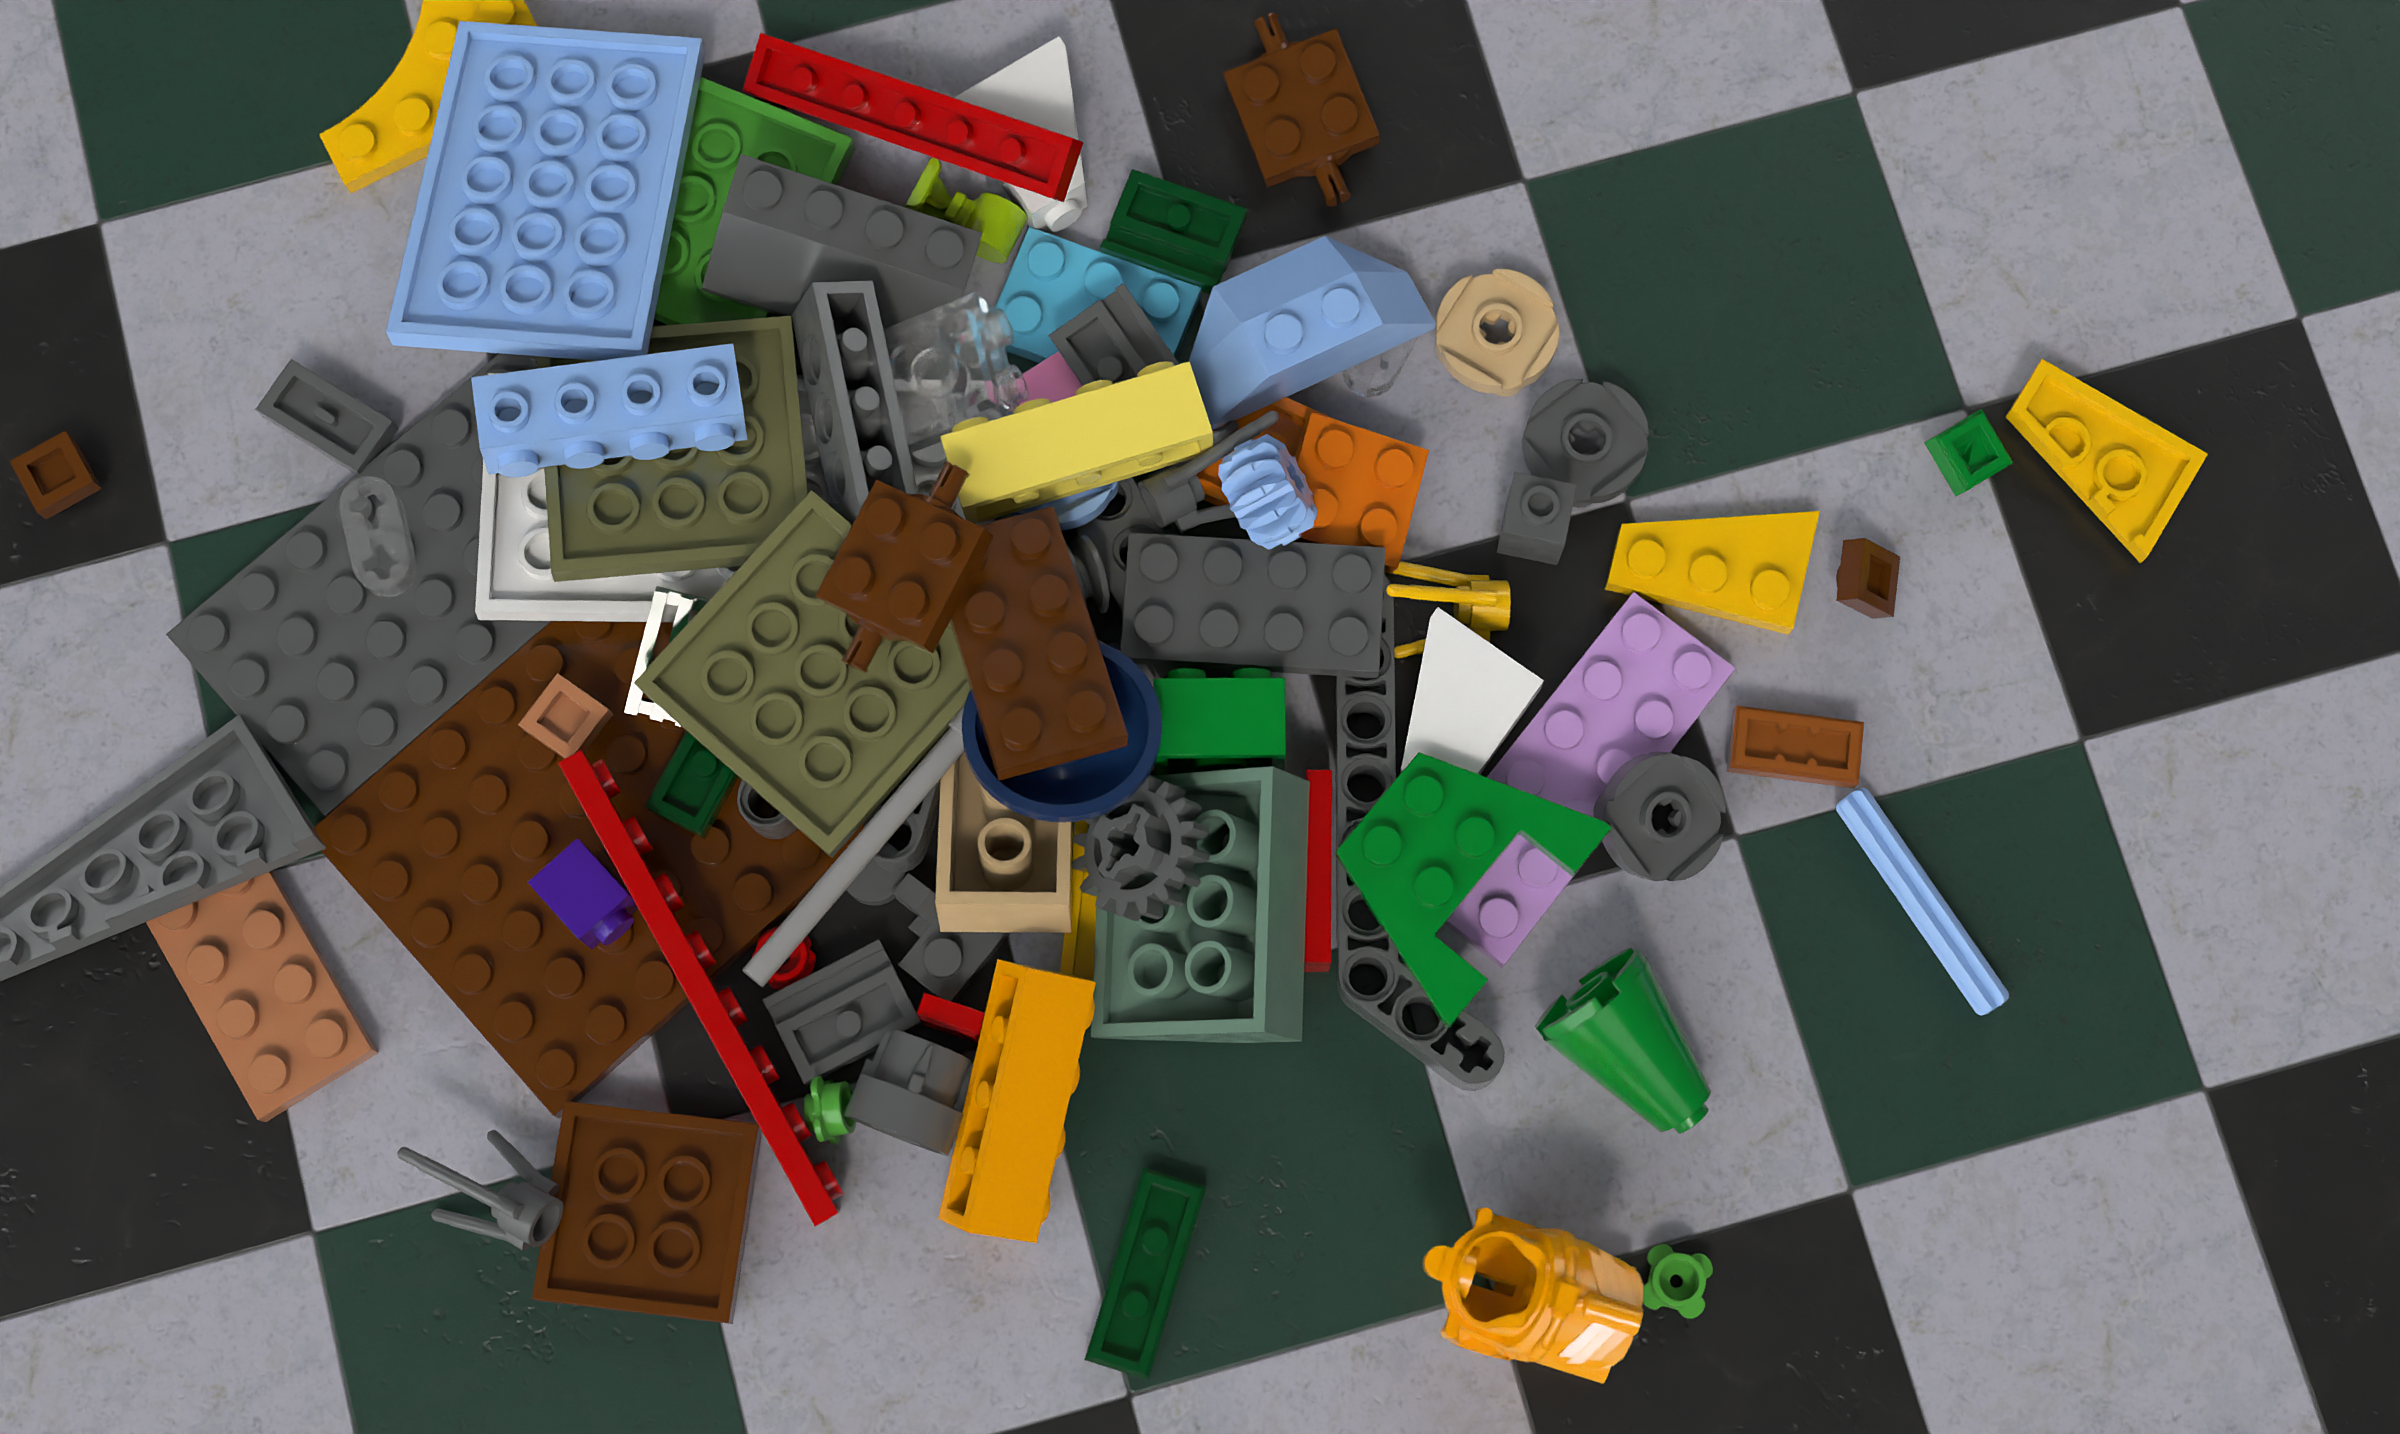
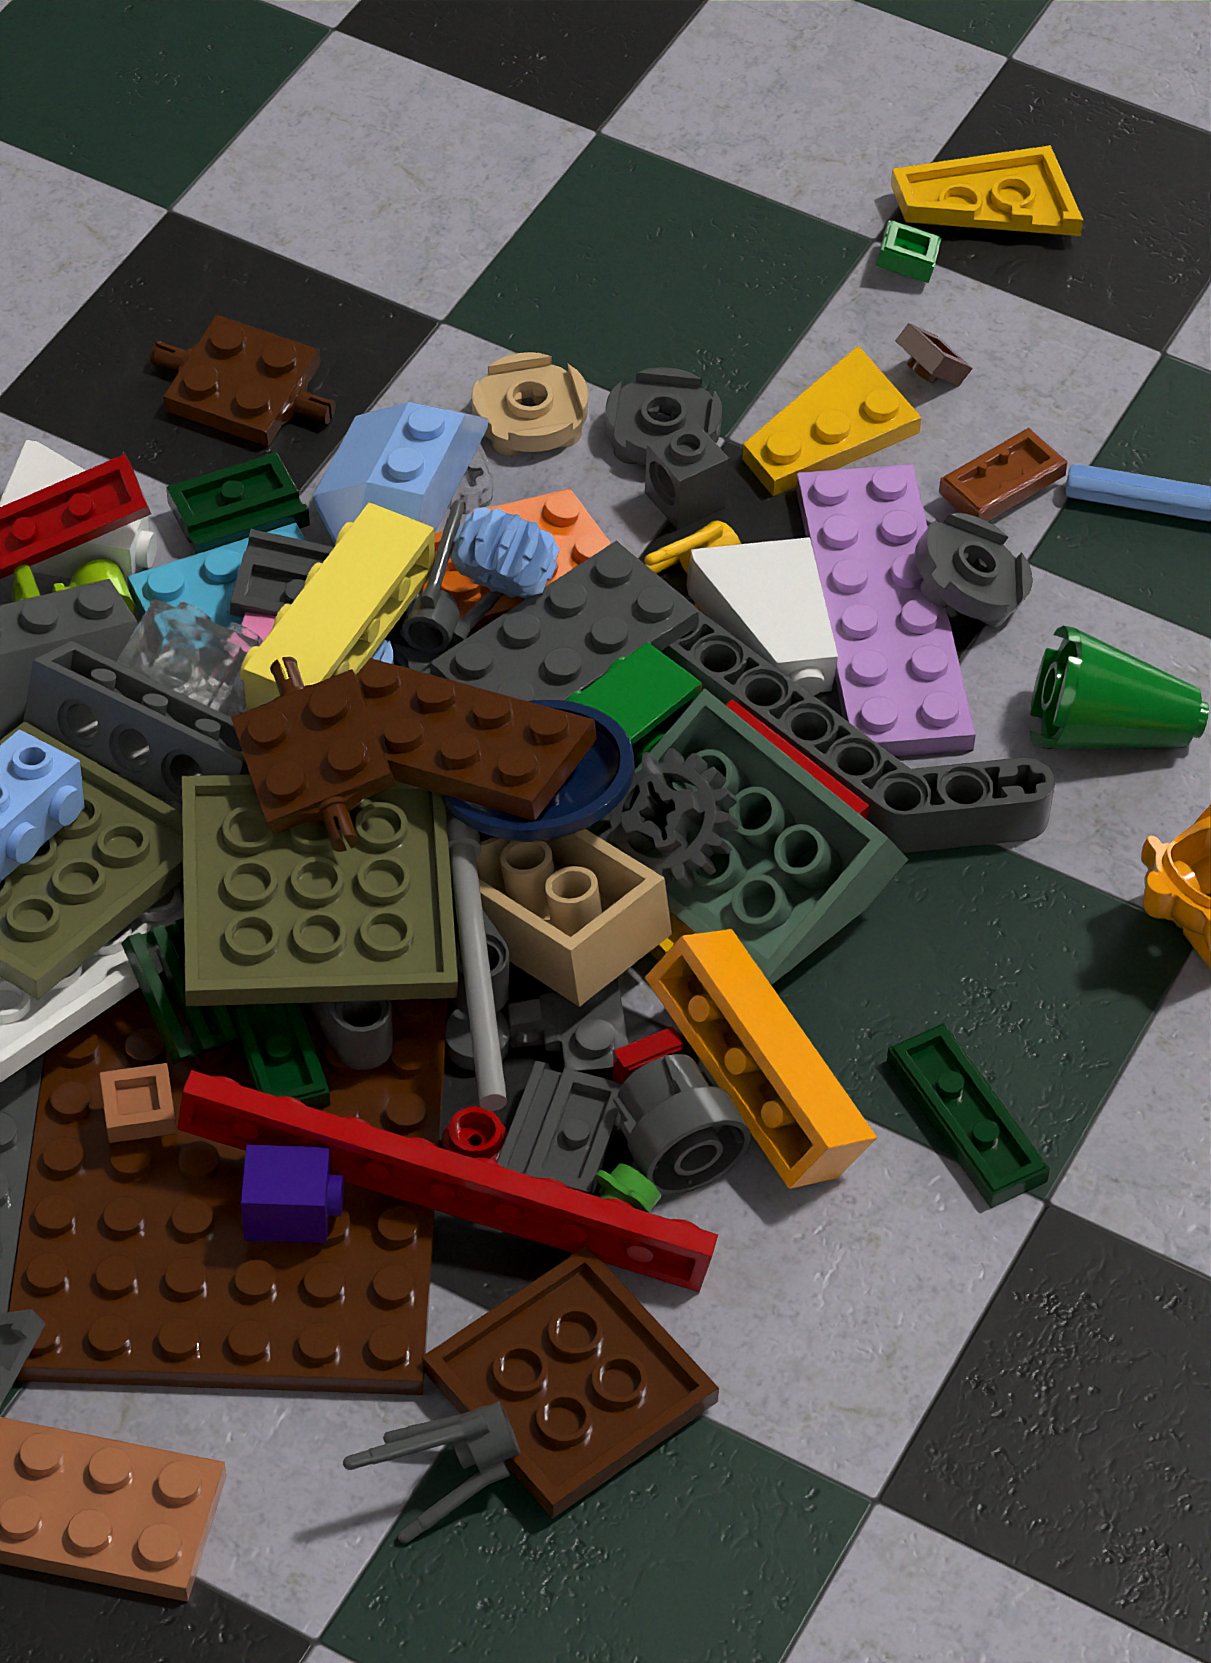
camera: 50 degrees left, 25 degrees down
(1433, 845) = (855, 683): green wing -> none

